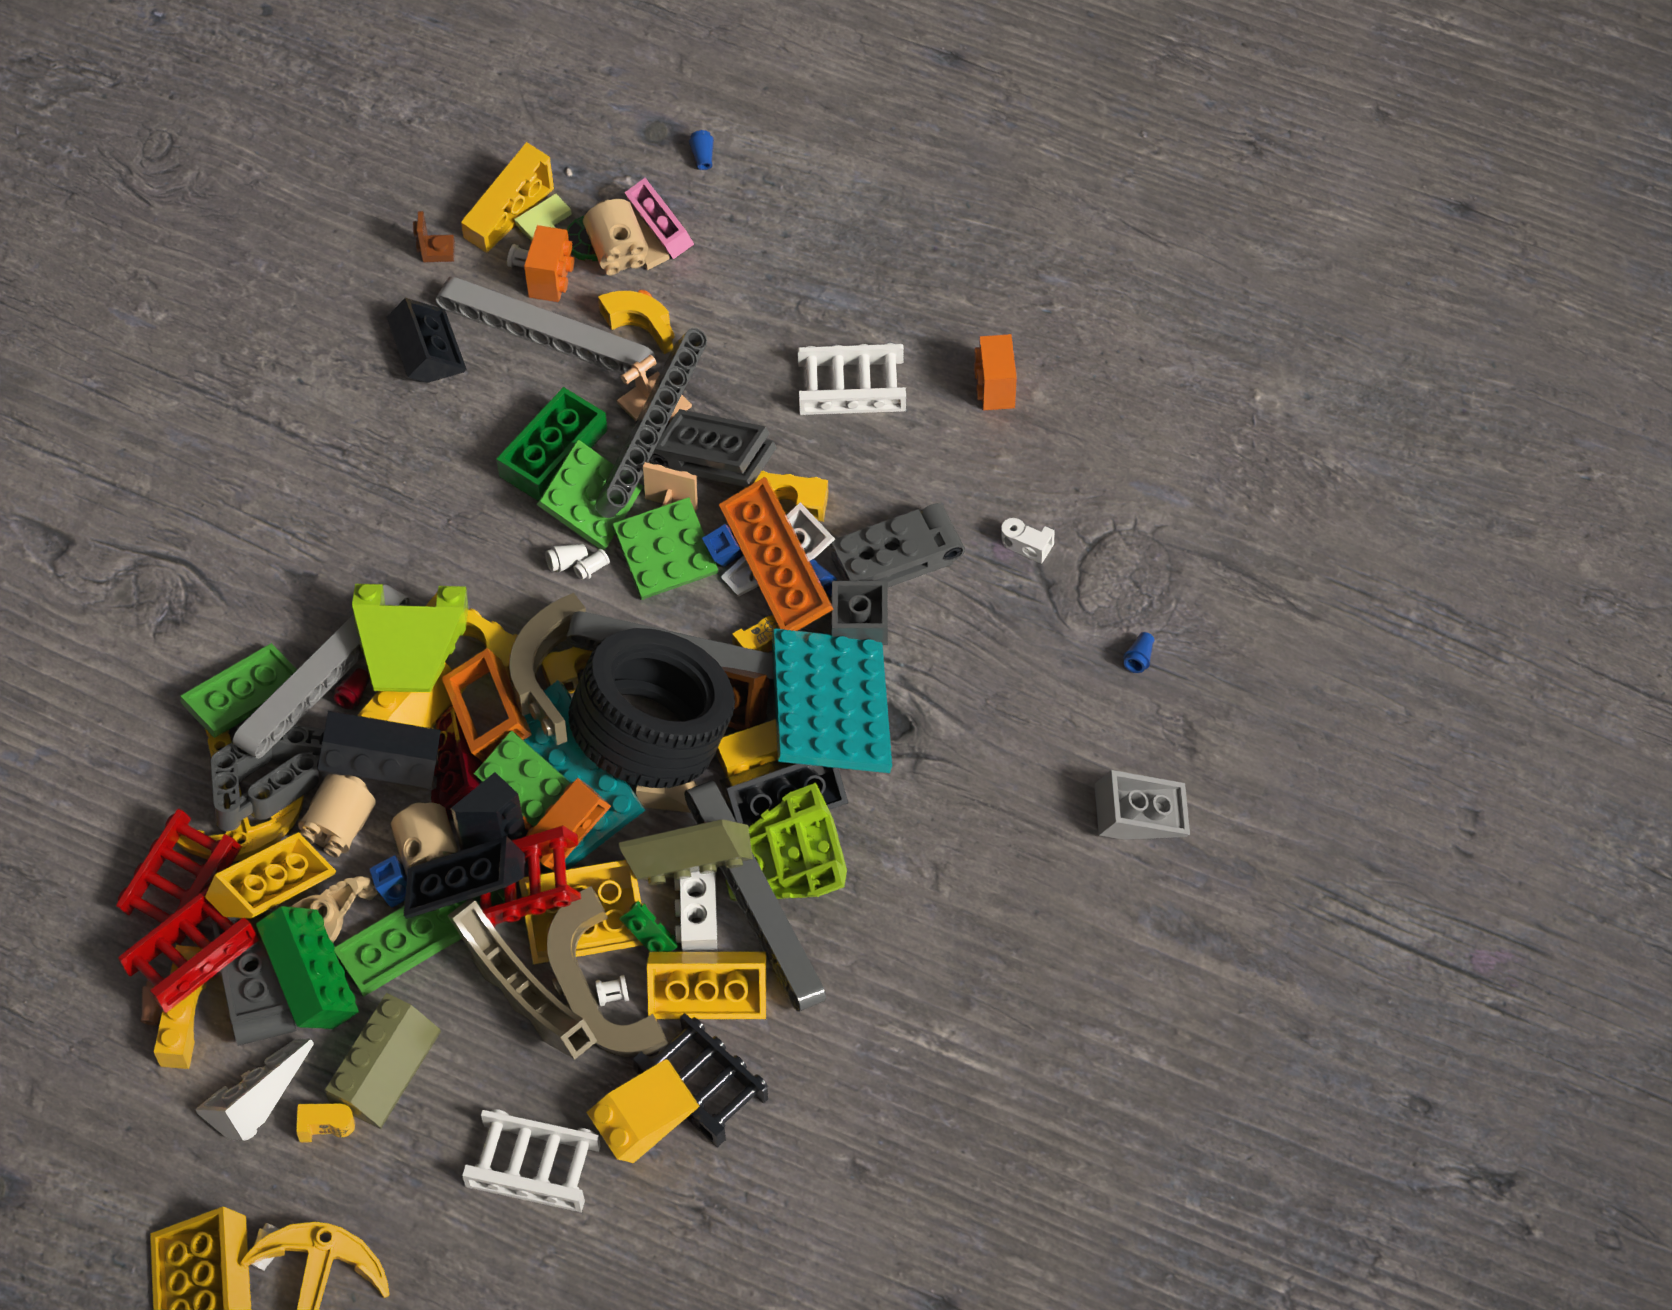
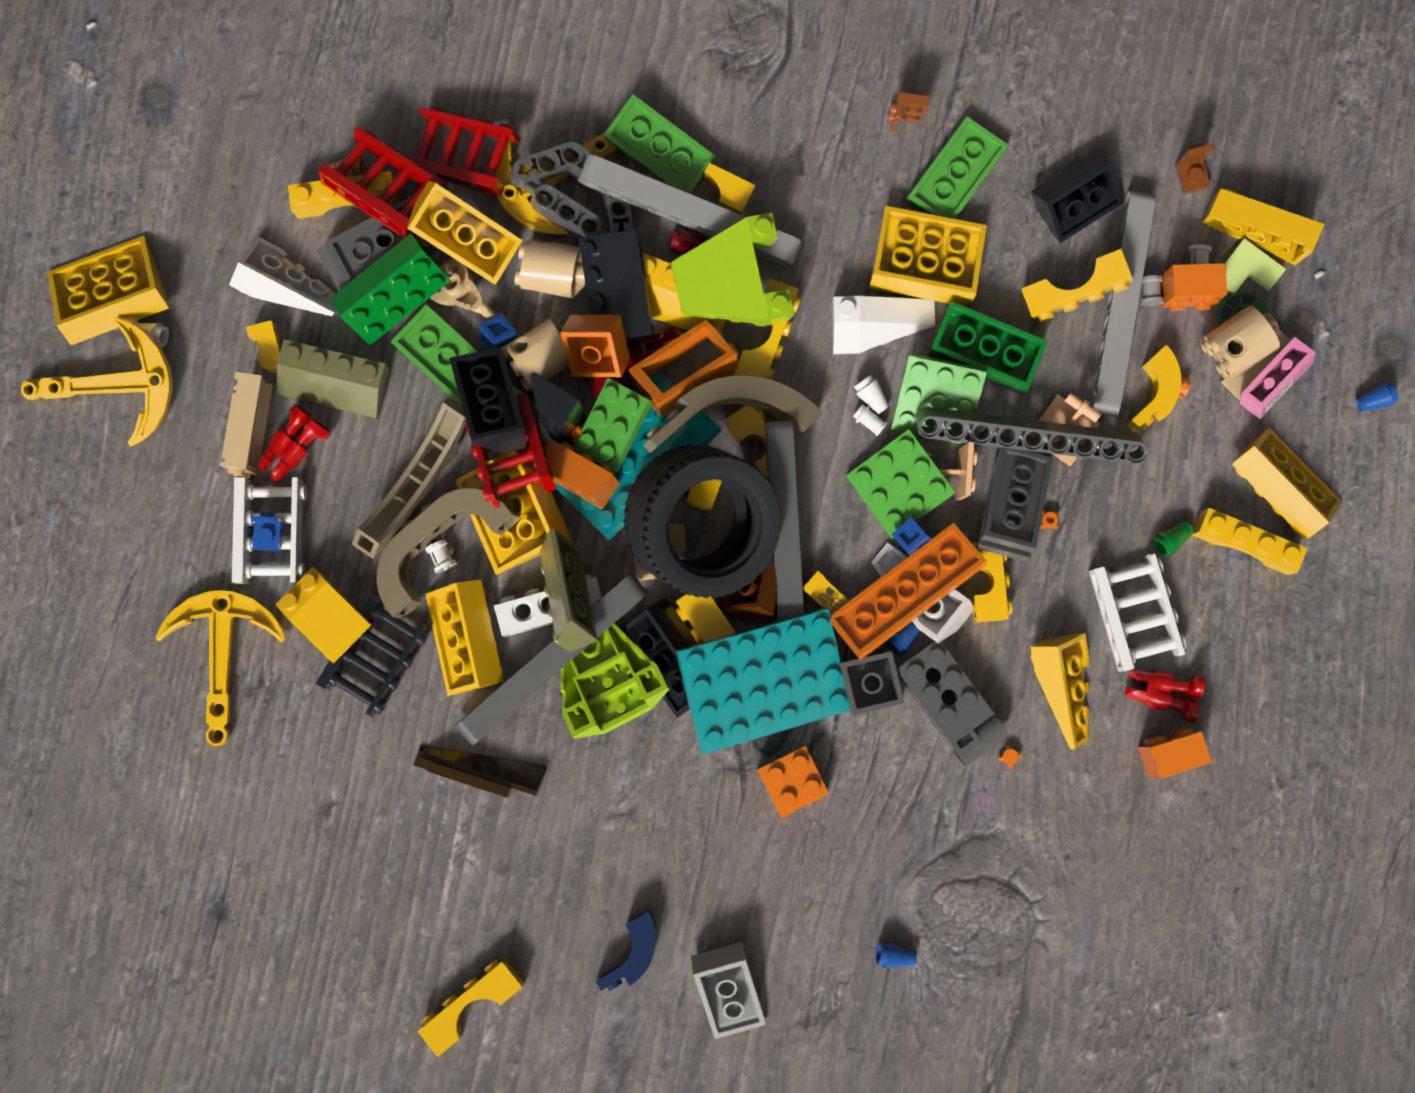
camera: 75 degrees right, 25 degrees up
(287, 461) = (909, 107): none -> dark orange bracket
(308, 636) = (733, 191): none -> yellow arch
(365, 437) = (958, 170): none -> bright green plate
(407, 1149) = (247, 425): none -> tan door
(437, 771) = (595, 345): none -> orange brick
(440, 1125) = (286, 448): none -> red piece
(443, 476) = (928, 256): none -> yellow slope
(491, 540) = (875, 321): none -> white wedge
(518, 385) = (1109, 274): none -> yellow arch
(533, 1152) = (267, 532): none -> blue bracket
(541, 300) = (1152, 290): none -> light grey bush
(645, 1237) = (219, 644): none -> yellow piece
(646, 930) = (504, 564): green hinge -> none
(762, 235) = (1287, 484): none -> yellow slope
(788, 336) = (1173, 538): none -> green cone
(791, 291) = (1236, 534): none -> yellow arch
(860, 994) = (482, 771): none -> dark brown wedge
(888, 453) = (1061, 673): none -> yellow wedge
(934, 377) = (1159, 688): none -> red piece
(941, 704) = (793, 781): none -> orange brick
(965, 516) = (1009, 756): none -> orange piece
(1027, 540) = (993, 821): white leg -> none
(1083, 879) = (643, 937): none -> dark blue arch
(1122, 1086) = (444, 1029): none -> yellow arch

